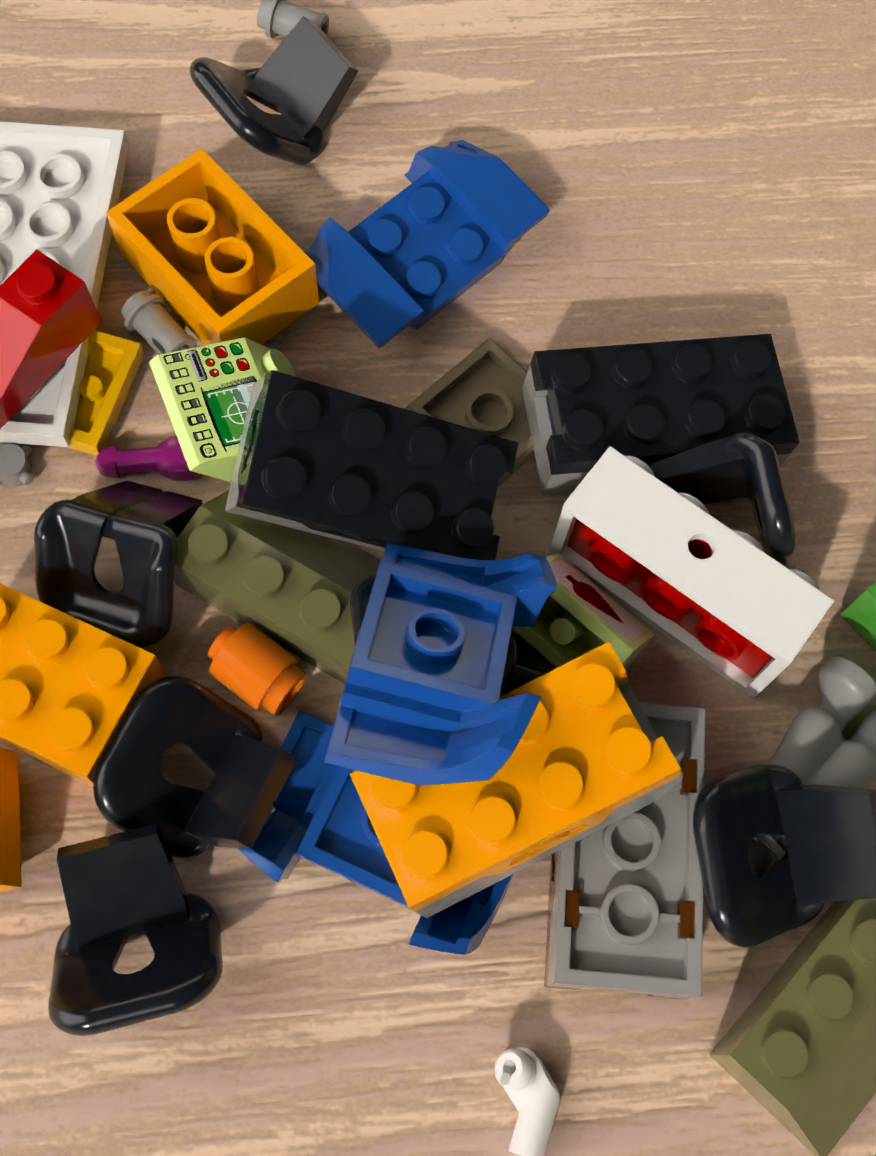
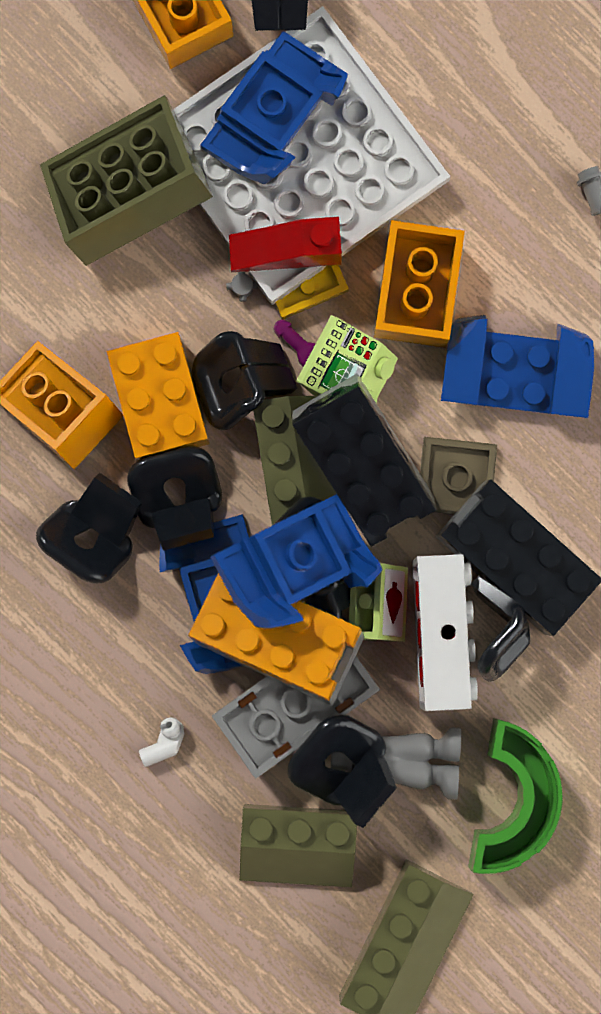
camera: 55 degrees right, 15 degrees up
(148, 317) = (364, 287): light grey pin -> none
(256, 668) = (242, 481): orange brick -> none
(299, 80) = (559, 233): black piece -> none

